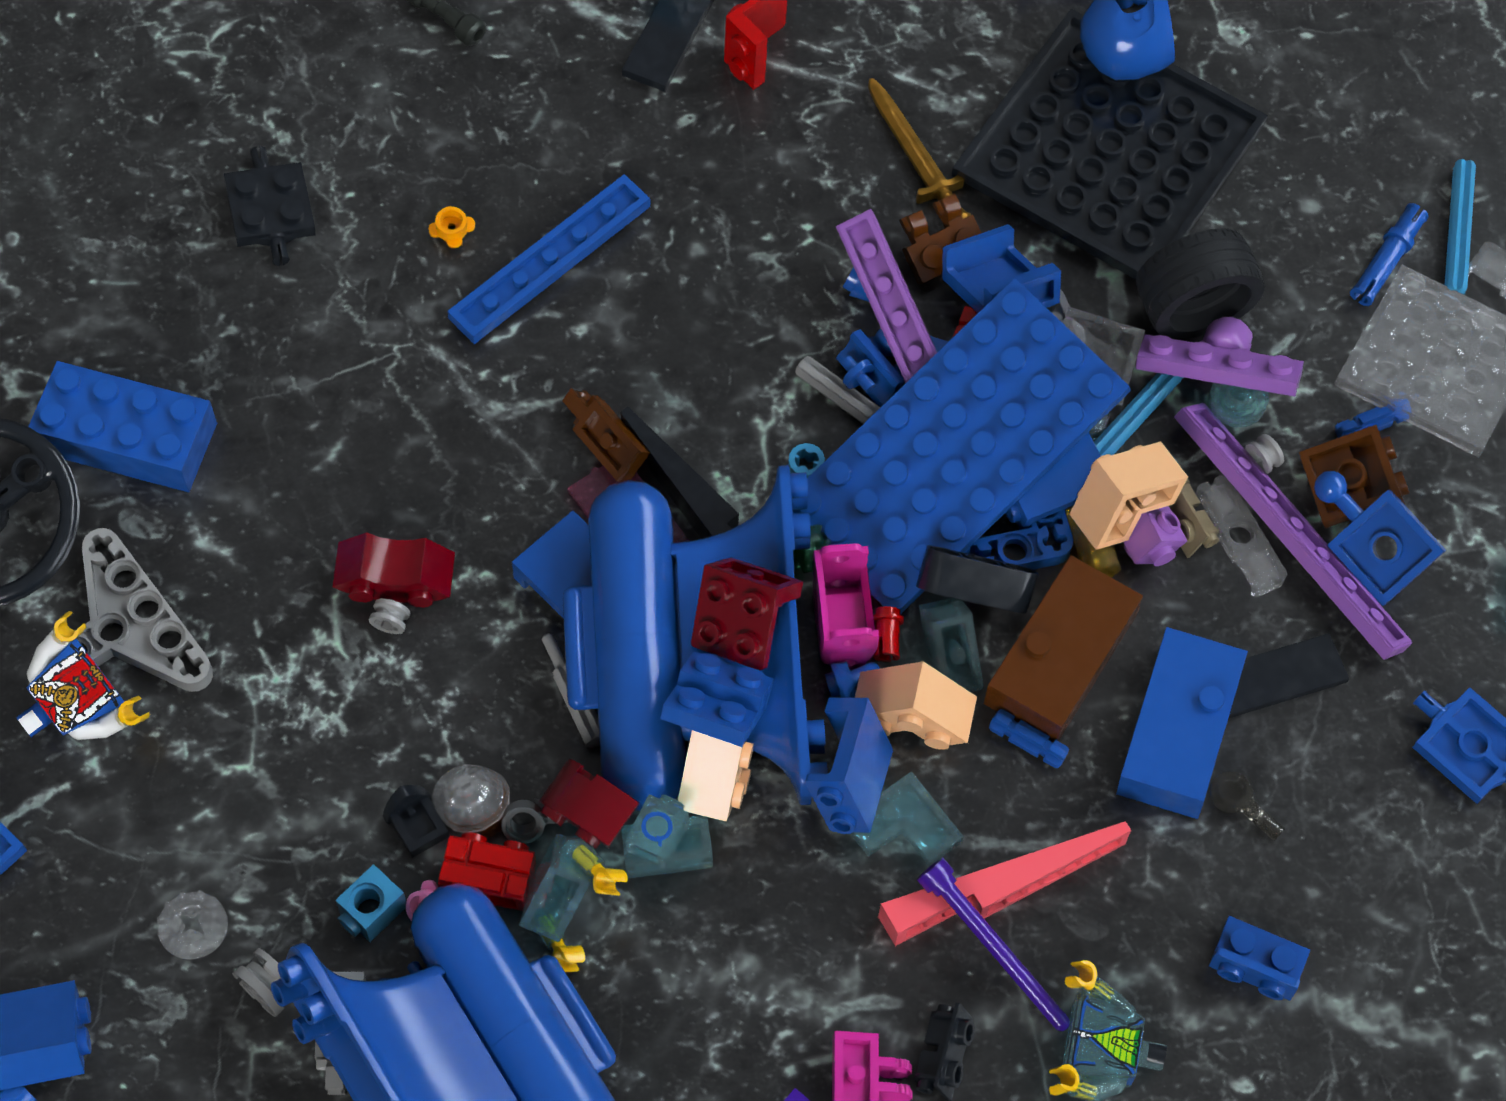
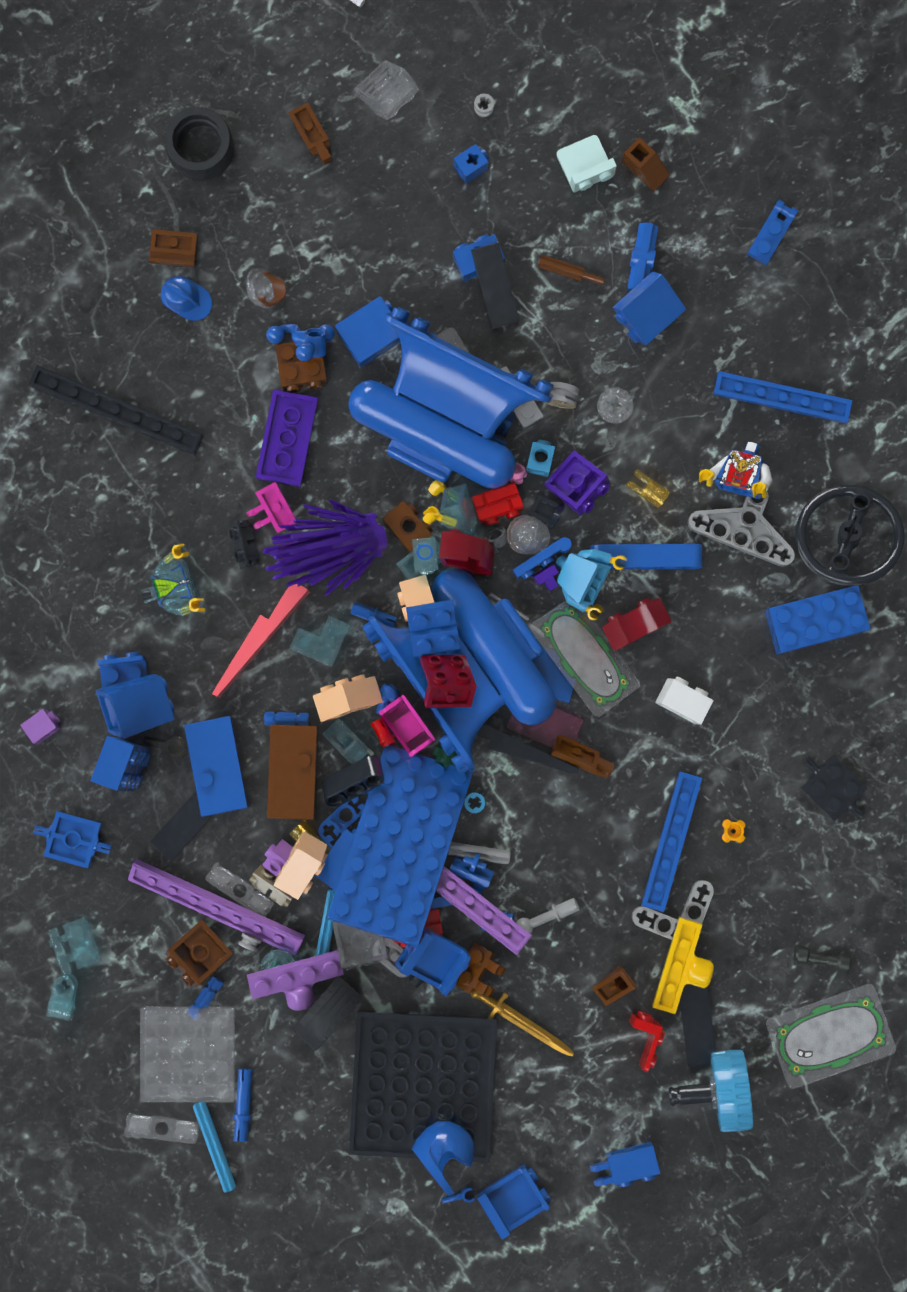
camera: 155 degrees right, 20 degrees up
(231, 753) = (652, 493): none -> clear yellow hinge
(310, 660) = (654, 556): none -> blue beam
(337, 830) = (578, 483): none -> dark purple plate
(389, 616) = (623, 600): light grey bush -> none
(399, 424) = (684, 700): none -> white brick
(423, 676) = (583, 577): none -> dark azure torso
(472, 748) = (543, 558): none -> blue plate
(485, 718) = (546, 576): none -> dark purple tile
(504, 564) = (585, 657): none -> clear sticker
(602, 154) = (693, 893): none -> light grey beam
(645, 92) = (682, 967): none -> yellow plate
(659, 892) = (398, 517): none -> reddish brown brick
(754, 124) = (614, 986): none -> reddish brown slope
(776, 936) = (328, 549): none -> dark purple plant
(796, 815) = (363, 611): none -> blue axle
(834, 267) = (559, 911): none -> light grey pin
(854, 786) = (353, 645): blue panel -> none
(941, 882) = (285, 613): dark purple piece -> none
(1269, 881) = (135, 705): none -> blue slope
(1341, 780) = (121, 764): none -> blue brick
(1358, 541) = (171, 931): blue plate -> none
(1444, 944) = (41, 726): none -> medium lavender brick

